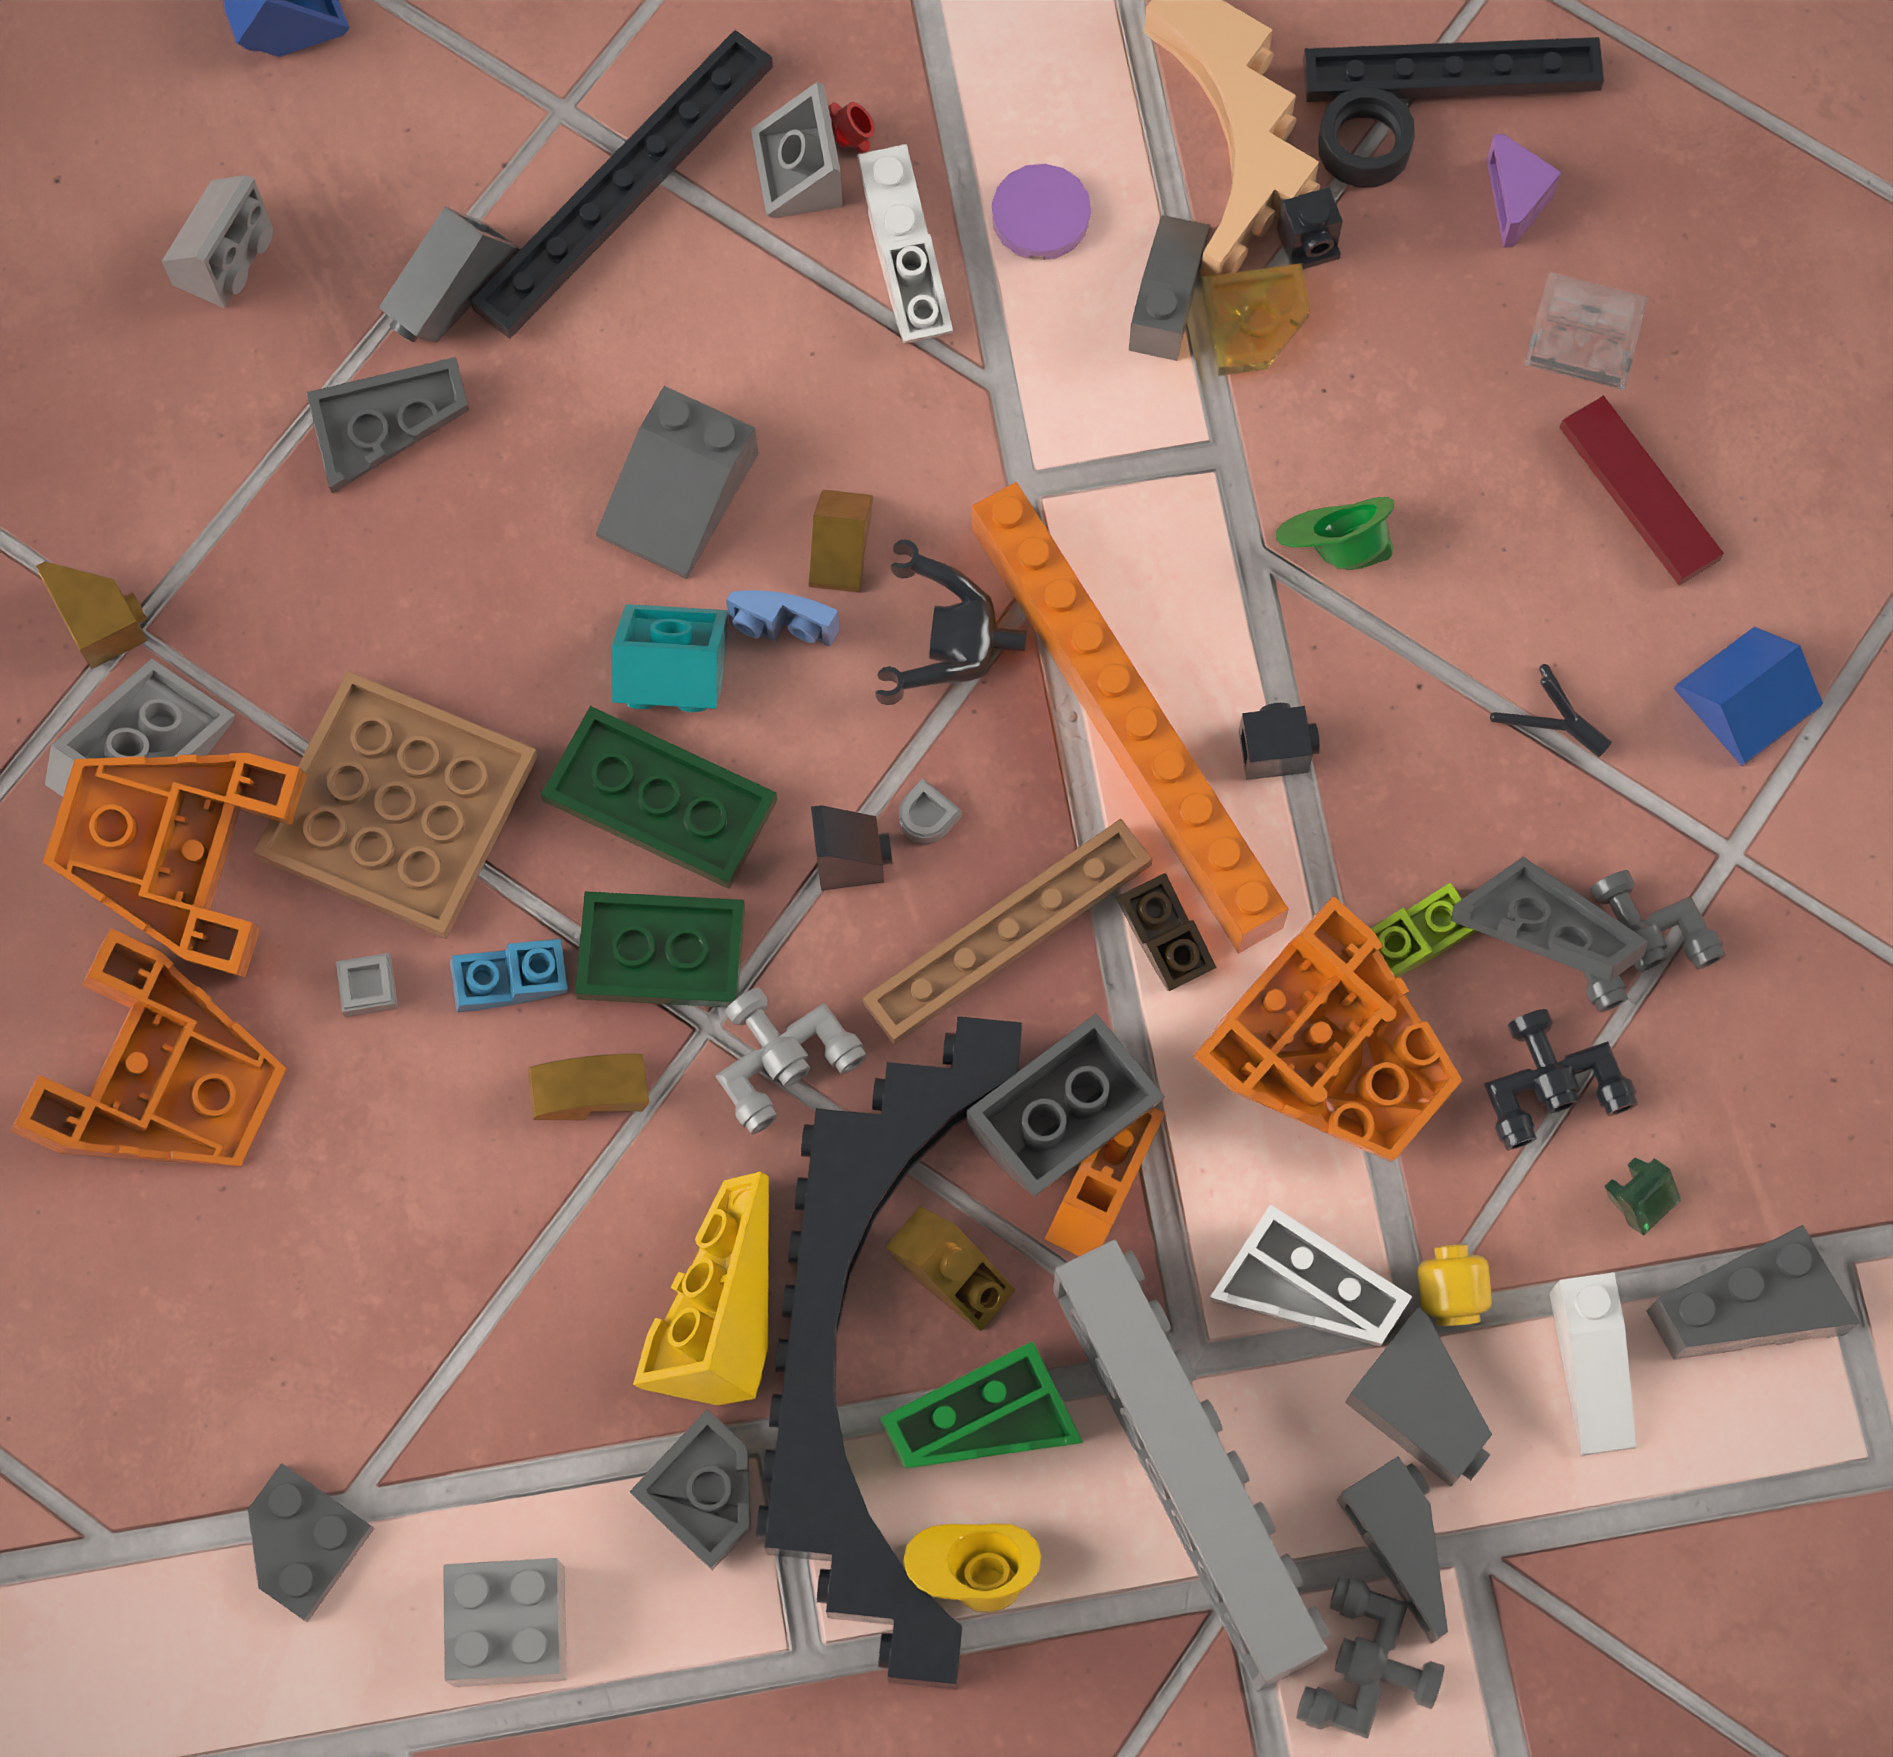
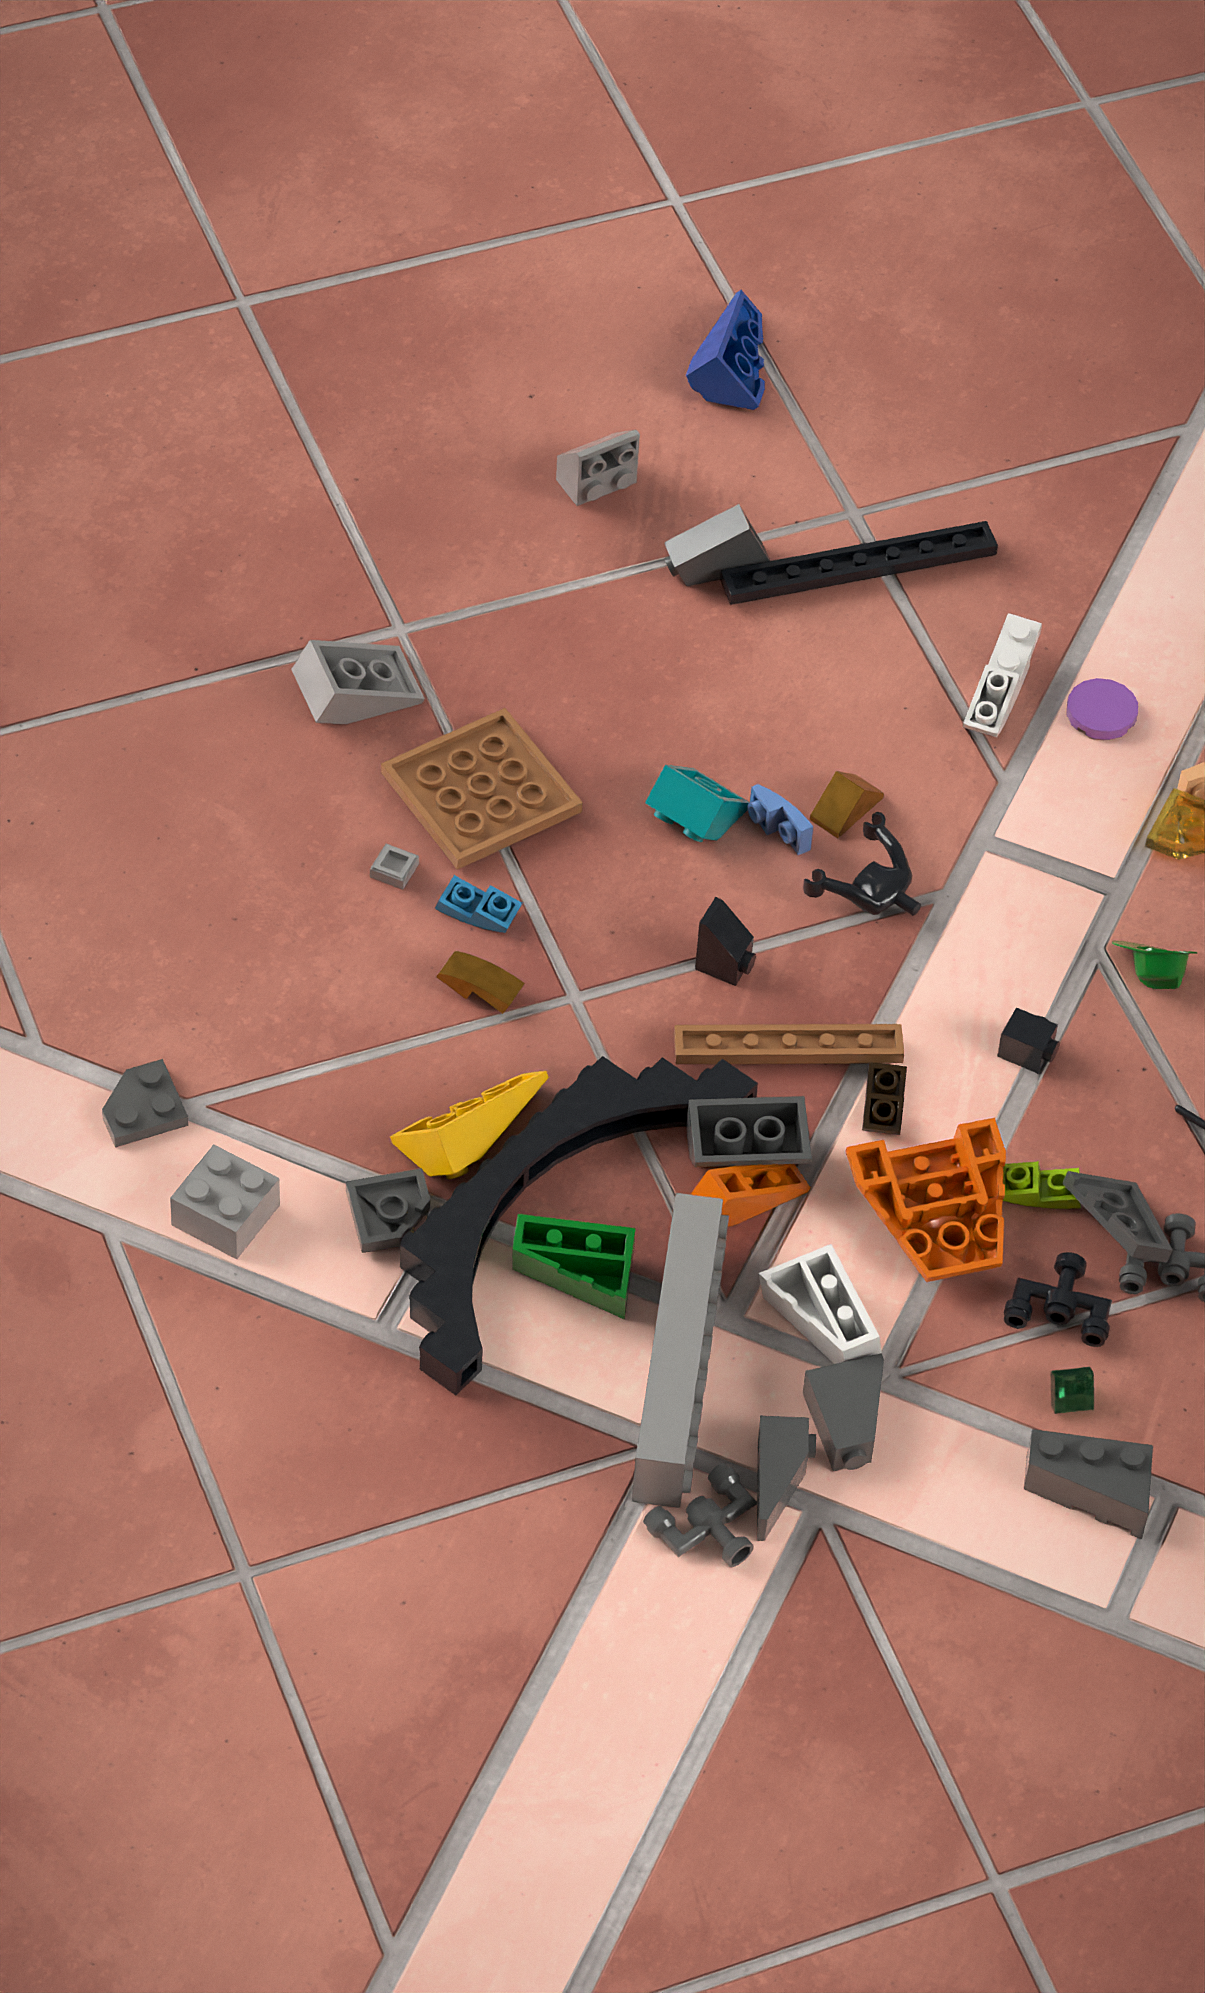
camera: 30 degrees right, 20 degrees down
(95, 612) = (385, 605): pearl gold slope -> none
(156, 839) = (336, 717): orange wedge -> none
(175, 1081) = (248, 850): orange wedge -> none
(382, 415) = (625, 600): dark grey wing -> none
(659, 797) = (636, 867): dark green plate -> none
(660, 949) = (576, 939): dark green plate -> none
(677, 481) = (773, 721): dark grey slope -> none
(781, 1055) = (604, 1028): light grey piece -> none
(798, 157) = (976, 604): light grey slope -> none
(851, 126) = (1019, 602): red plate -> none
(927, 814) = (788, 965): light grey tile -> none
(950, 1267) = (619, 1184): pearl gold slope -> none
(973, 1563) = (513, 1330): yellow piece -> none
(1128, 718) = (946, 979): orange brick -> none
(1168, 288) = (1142, 786): dark grey slope -> none
(1454, 1286) = (914, 1364): yellow head -> none
(1595, 1362) = (971, 1451): white slope -> none

